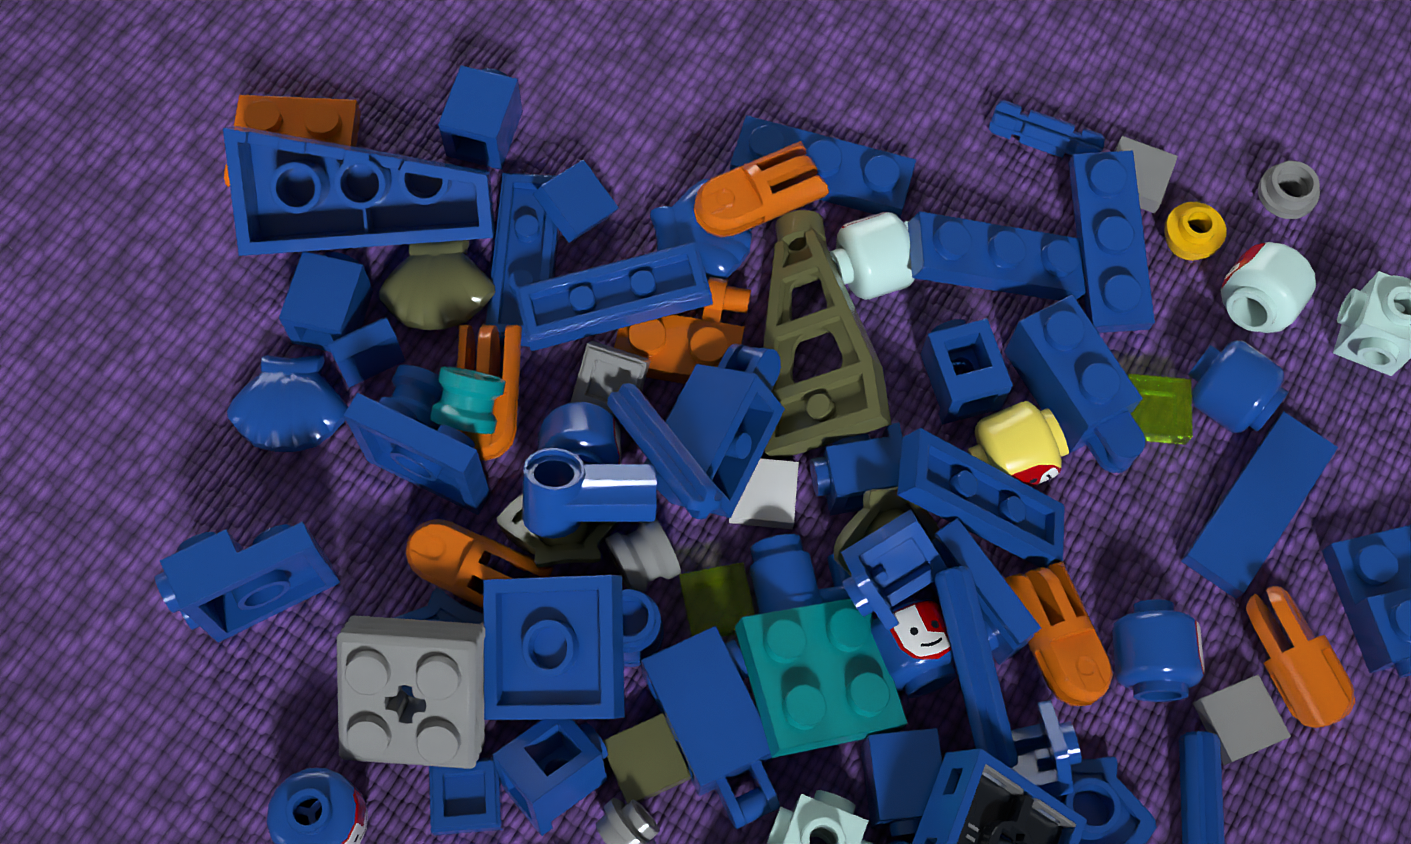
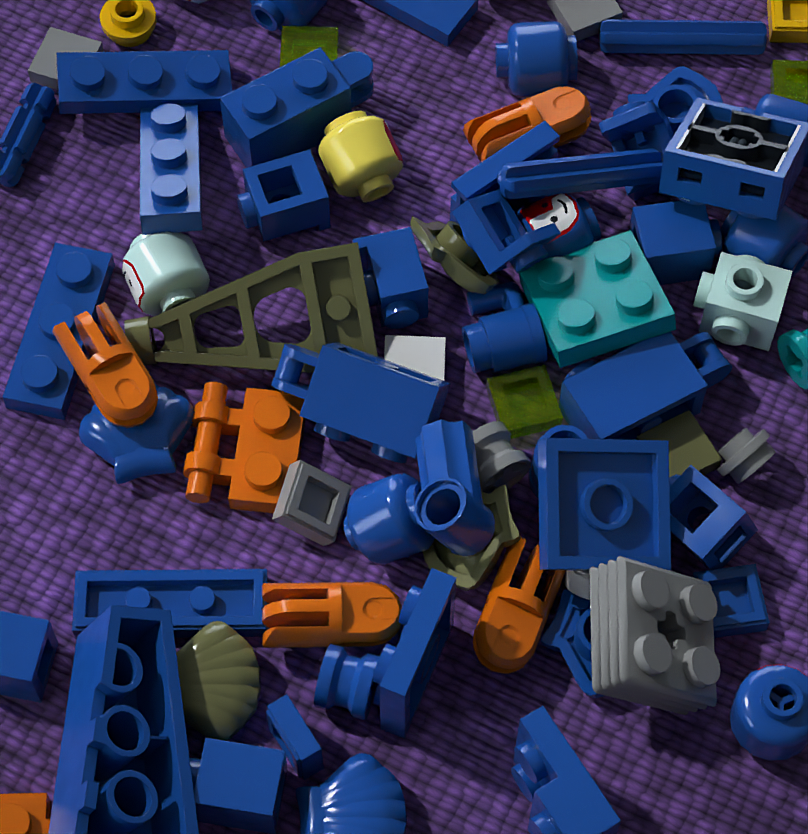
camera: 90 degrees left, 5 degrees down
(467, 400) = (364, 603): teal wheel -> none
(575, 201) = (109, 550): blue tile -> none
(613, 296) = (226, 499): blue tile -> none
(665, 451) = (401, 425): blue axle -> none
(981, 498) = (423, 174): blue plate -> none

